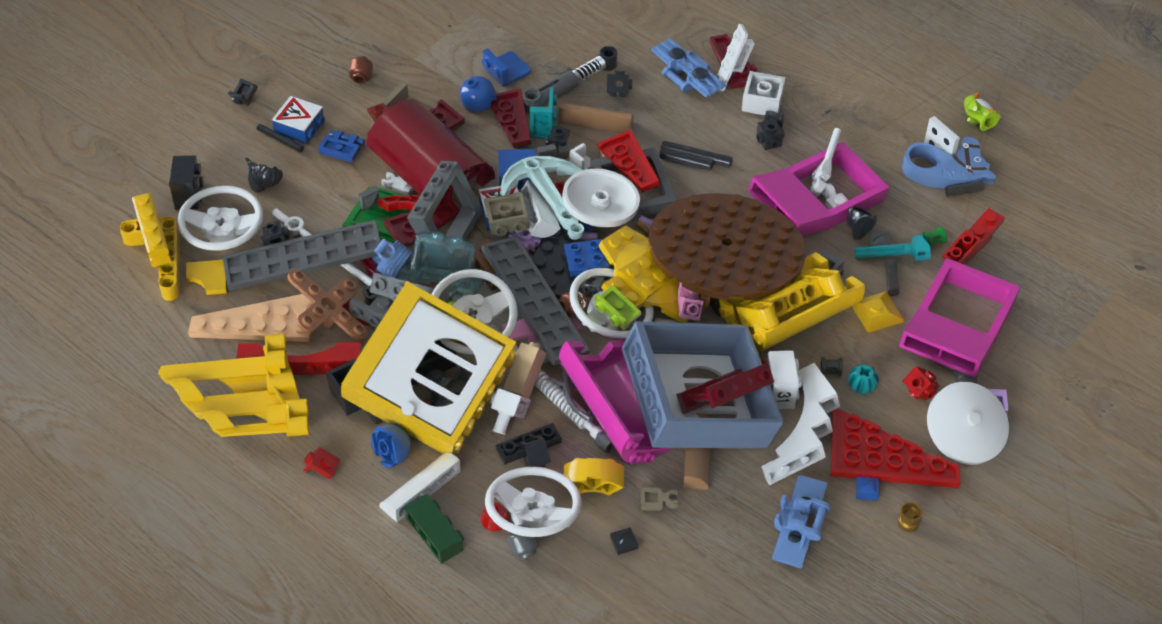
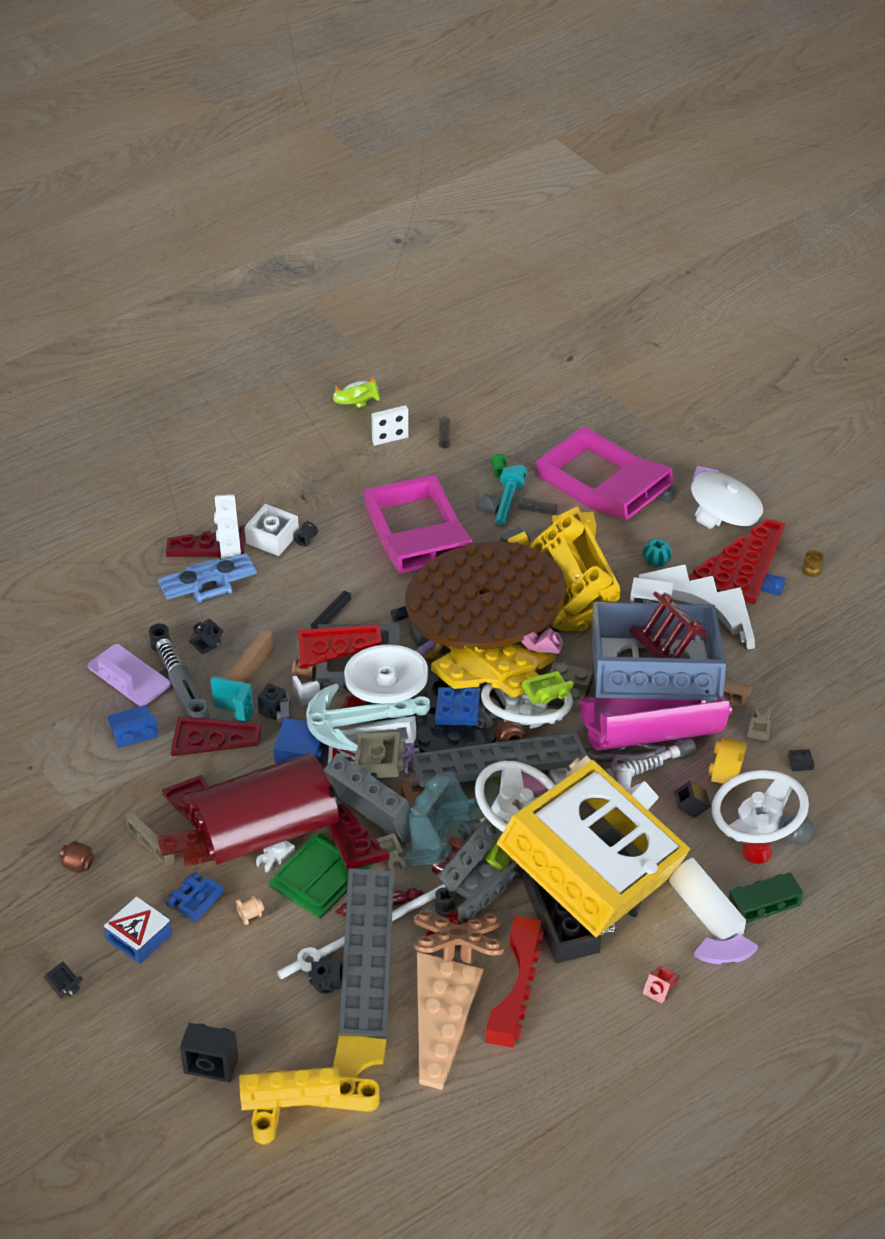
camera: 75 degrees left, 5 degrees down
(220, 225) = (289, 1017): white piece -> none
(260, 388) = (554, 1020): yellow panel -> none
(262, 176) = (219, 977): black hair -> none
(279, 137) = (152, 957): black bar -> none
(334, 178) = (249, 909): none -> light nougat brick
(369, 198) = (301, 876): dark grey tile -> none
(369, 510) = (725, 951): none -> lavender tile
(391, 444) = (658, 913): blue cylinder -> none
(395, 262) = (407, 868): medium blue piece -> none
(398, 202) = (315, 854): red tile -> none
(477, 94) = (169, 756): blue cylinder -> none
(511, 450) = (671, 816): black tile -> none
(542, 394) = (624, 776): none -> white bush
(560, 50) = (129, 675): none -> lavender bracket
(717, 158) = (342, 585): black axle -> none
(769, 134) = (329, 539): black brick -> none
(792, 520) = (795, 634): medium blue piece -> none
(823, 171) = (396, 514): white piece -> none
(831, 366) = (635, 568): pearl dark grey bush -> none
(833, 199) = (427, 518): white plate -> none
(860, 222) = (470, 506): black hair -> none
(921, 383) = (673, 517): red brick -> none
(947, 169) = (420, 433): medium blue animal -> none
(975, 238) = (511, 442): red slope -> none

